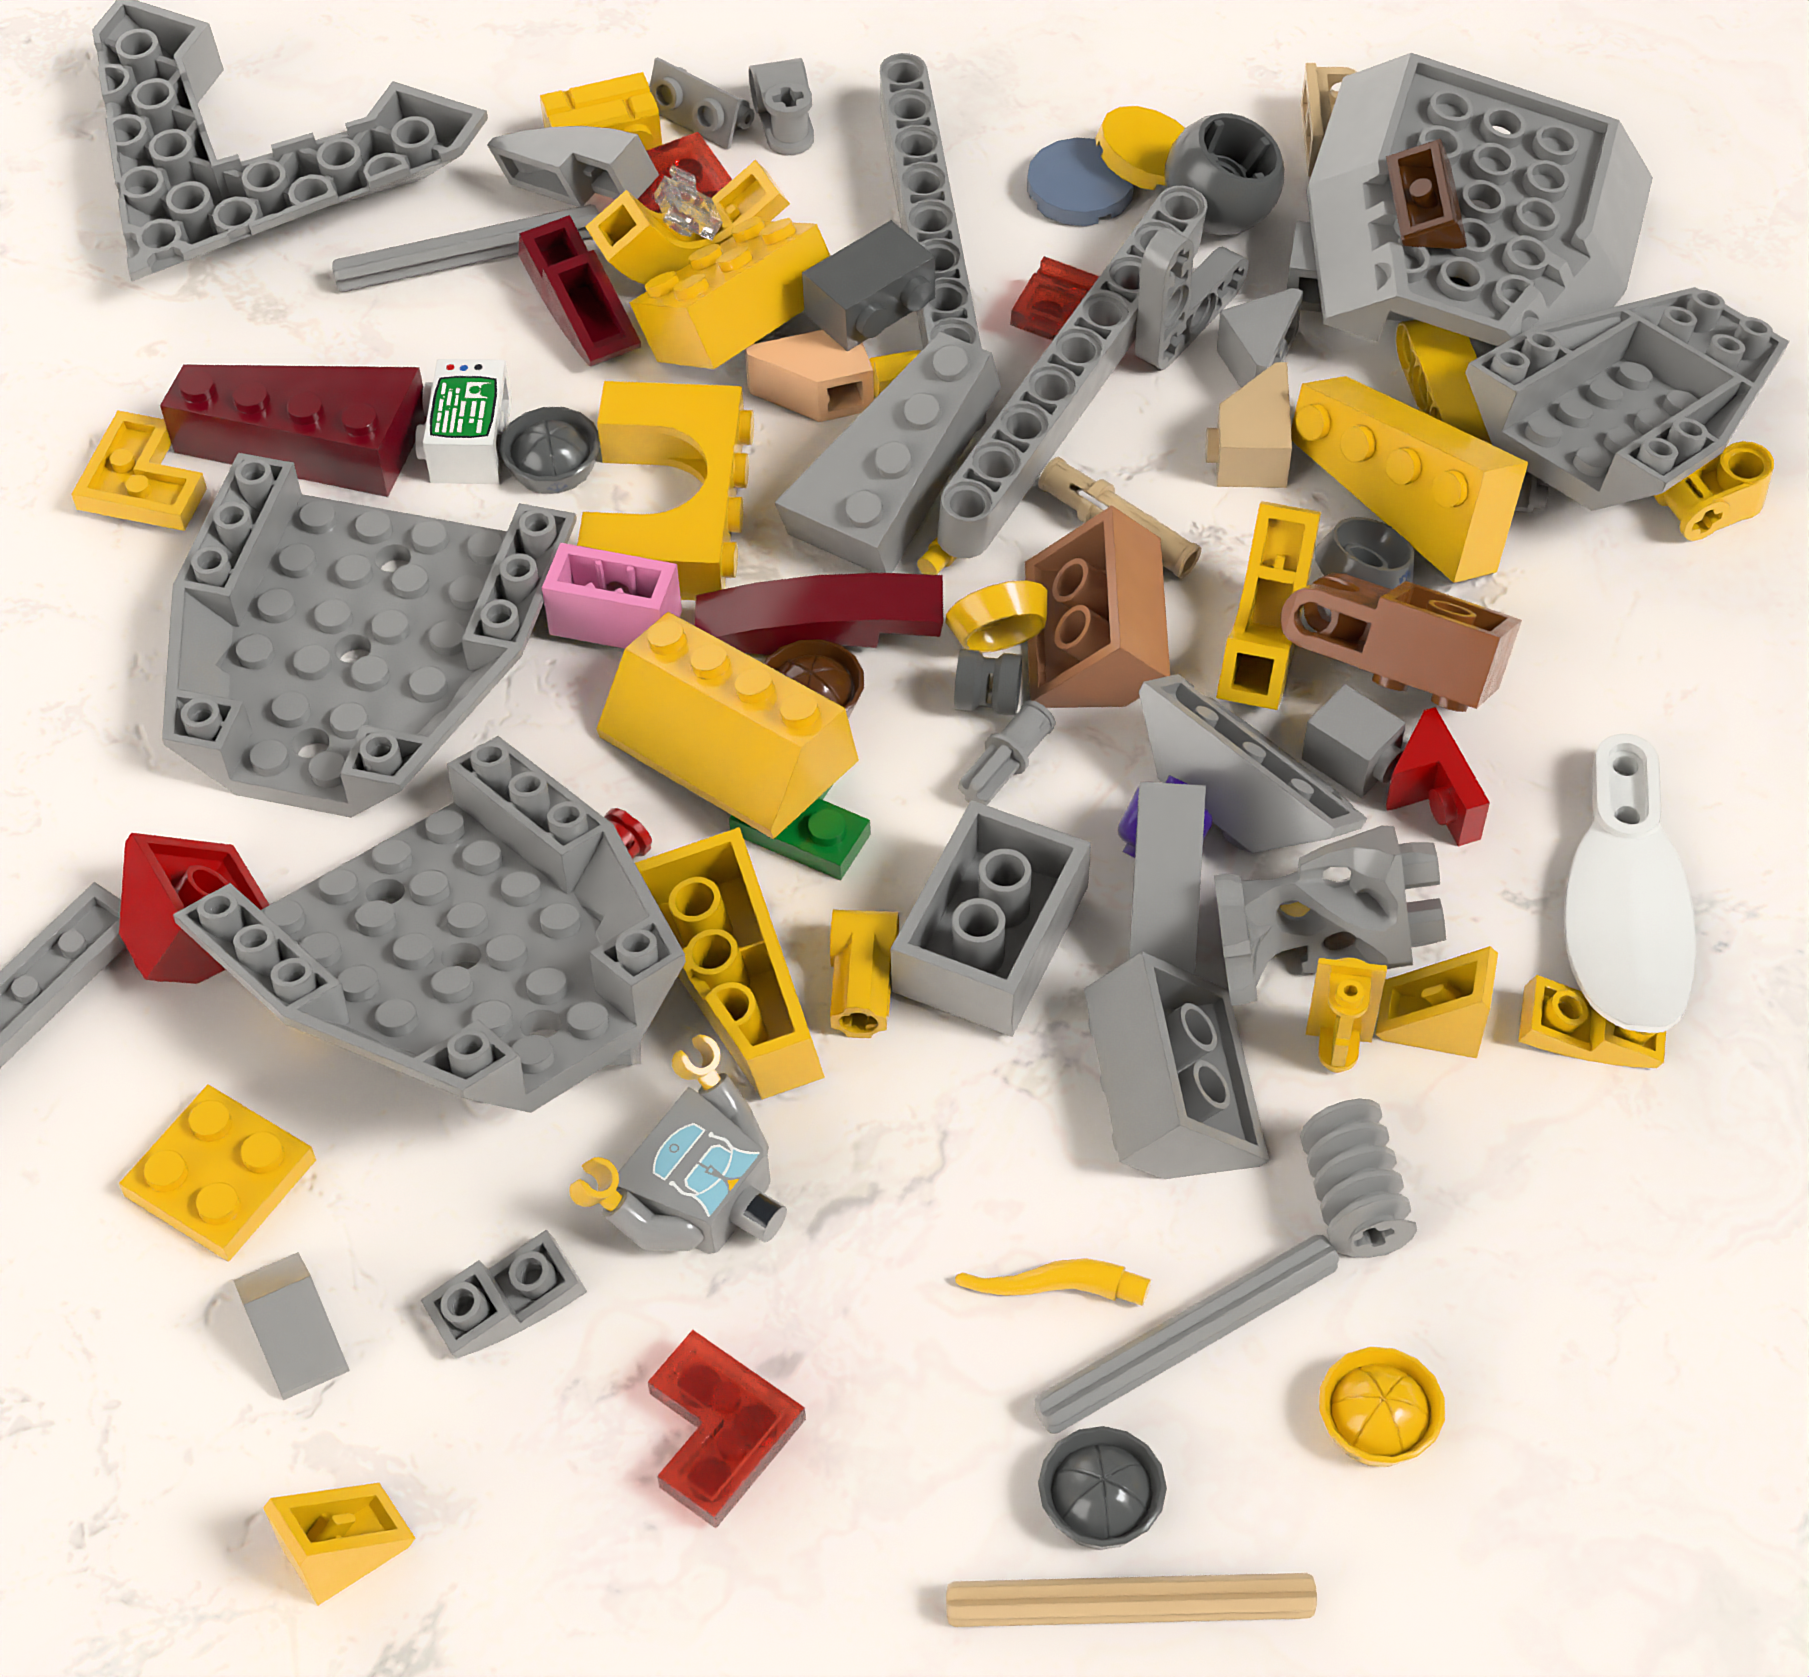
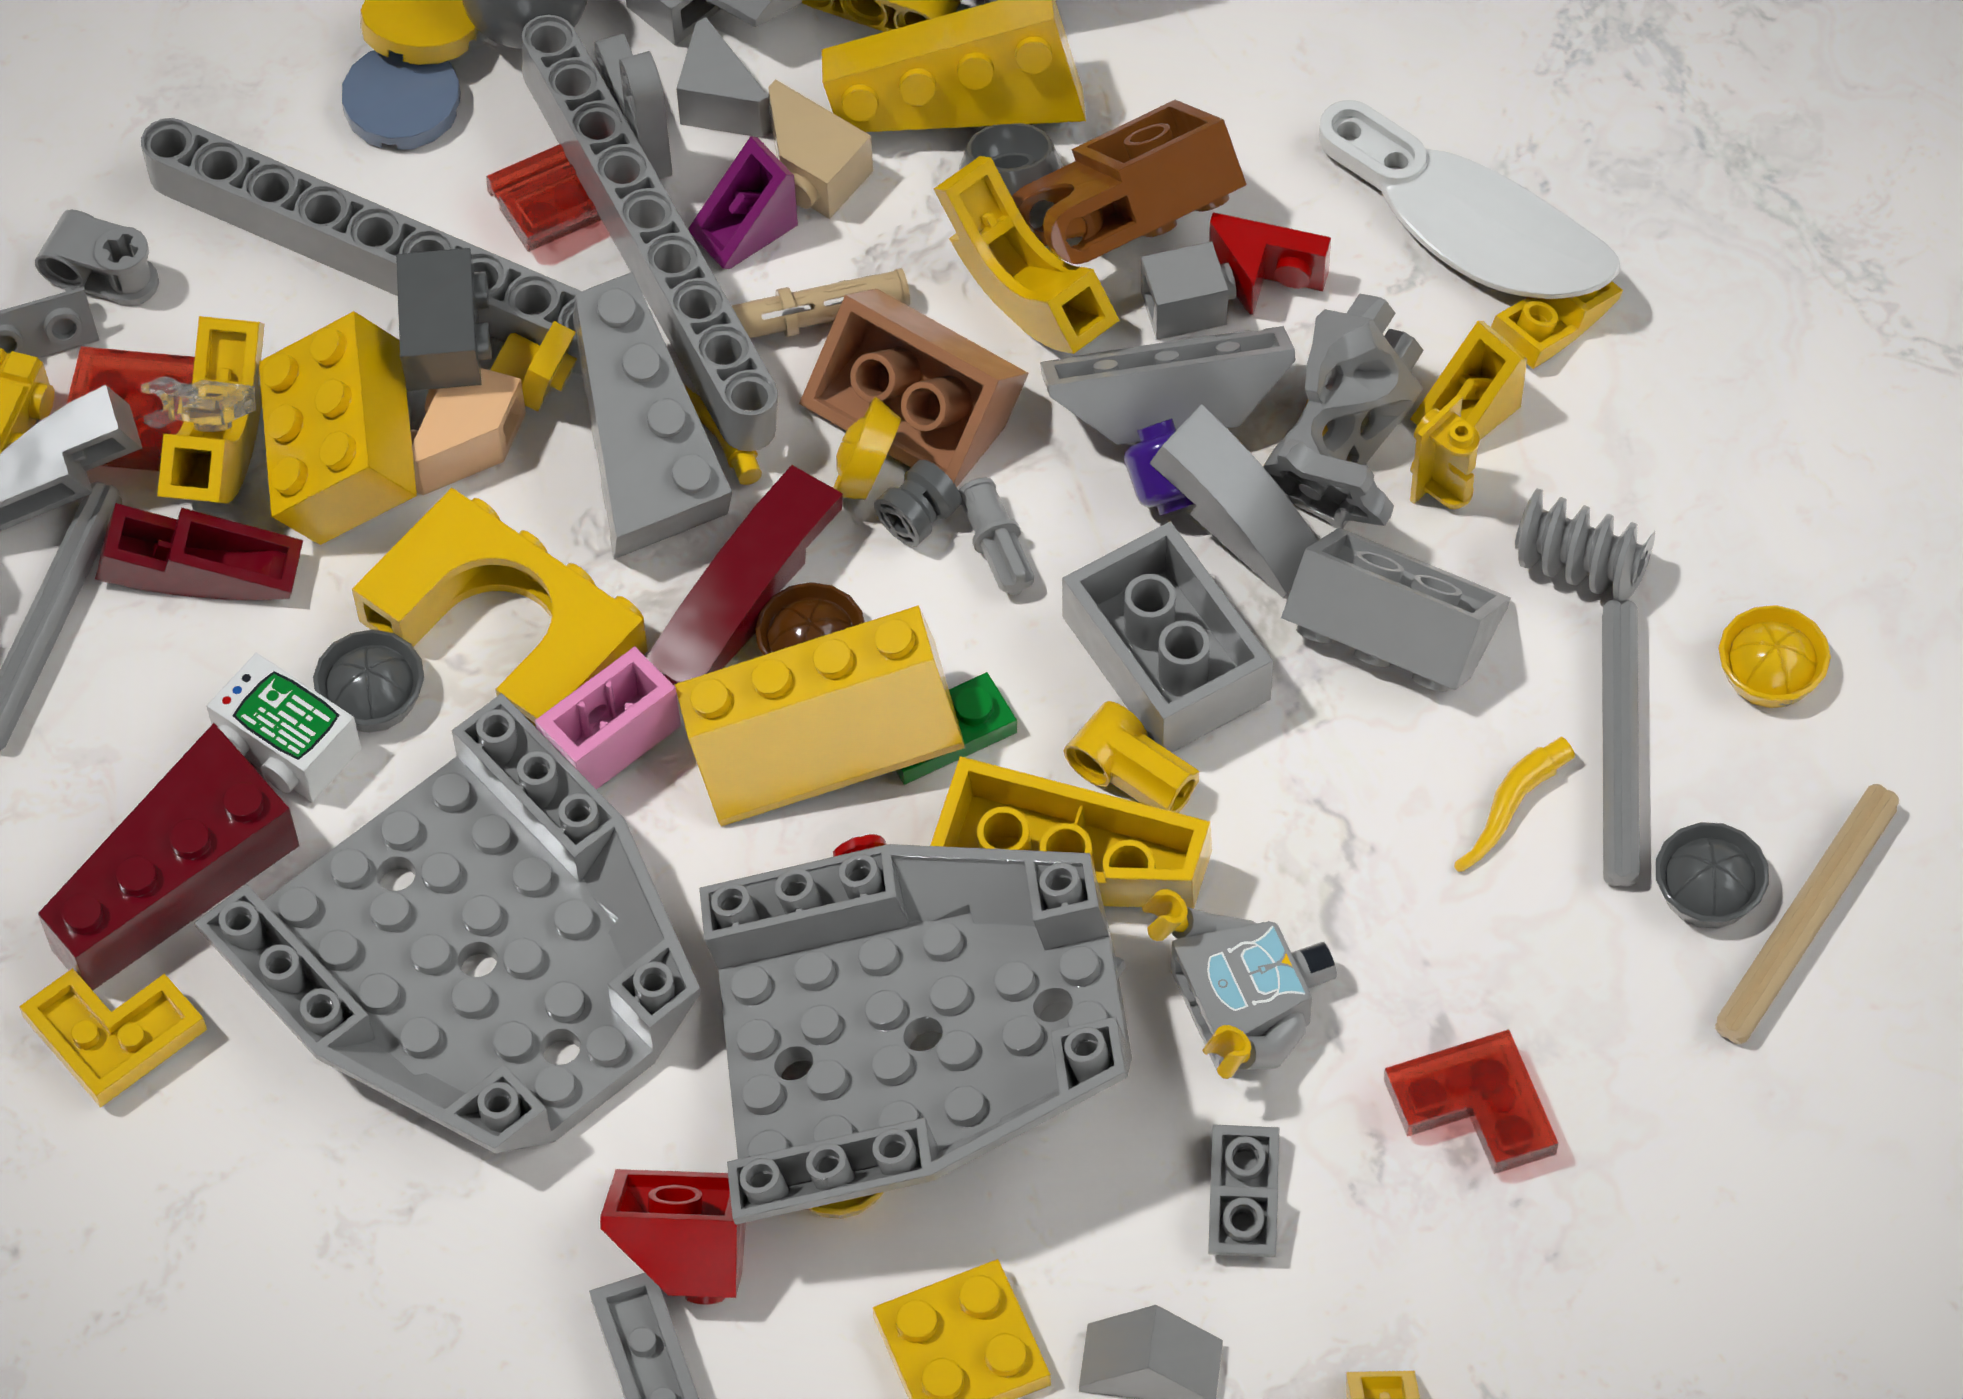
camera: 55 degrees left, 5 degrees up
(1165, 423) = (747, 206): none -> magenta slope

